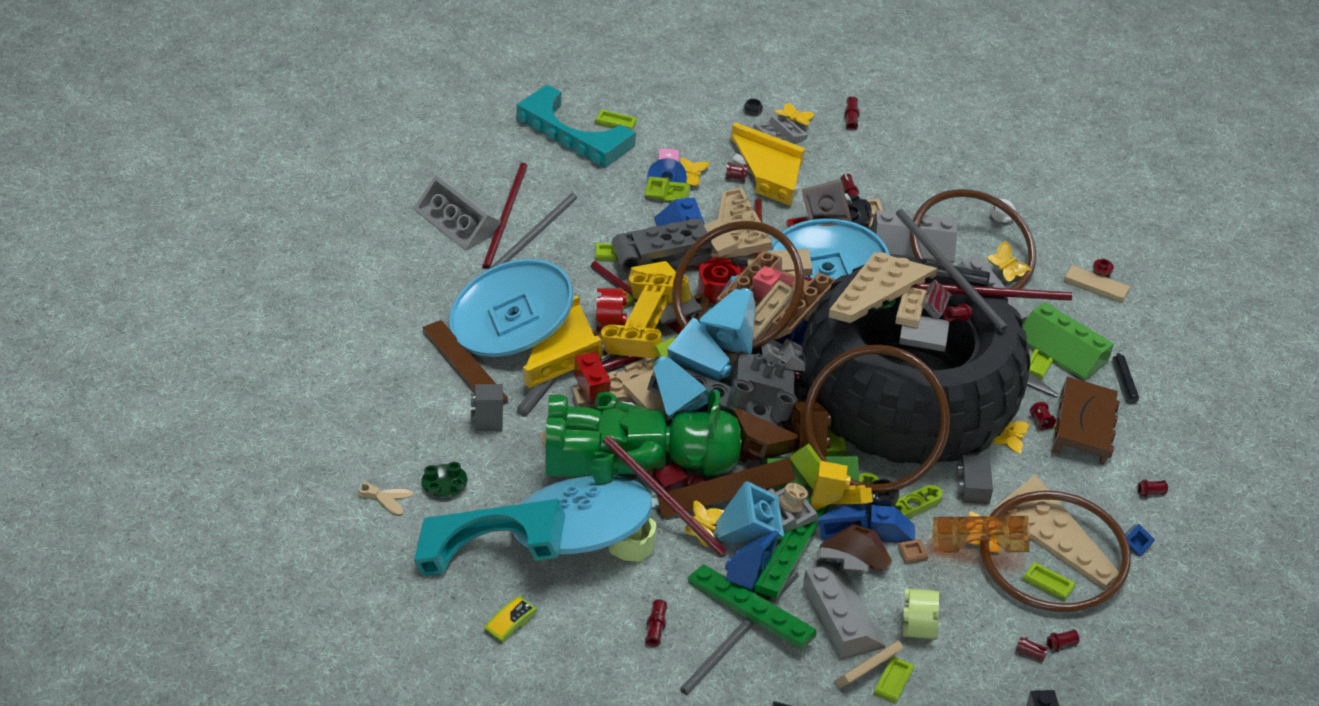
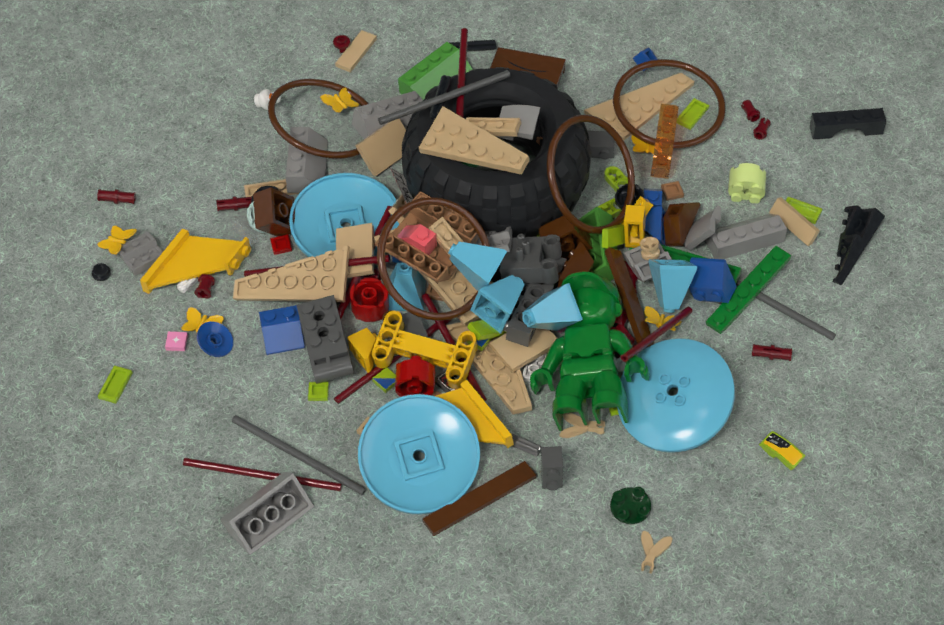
camera: 85 degrees left, 10 degrees up
(446, 534) = (705, 495): teal arch -> none
(591, 376) = (511, 389): red brick -> none
(600, 147) = (105, 447): teal arch -> none
(665, 190) = (232, 339): lime slope -> none
(724, 243) = (334, 286): tan tile -> none
(935, 299) = (482, 110): clear tile -> none
(961, 312) = (493, 97): dark red pin -> none
(1152, 487) = (592, 47): dark red pin -> none

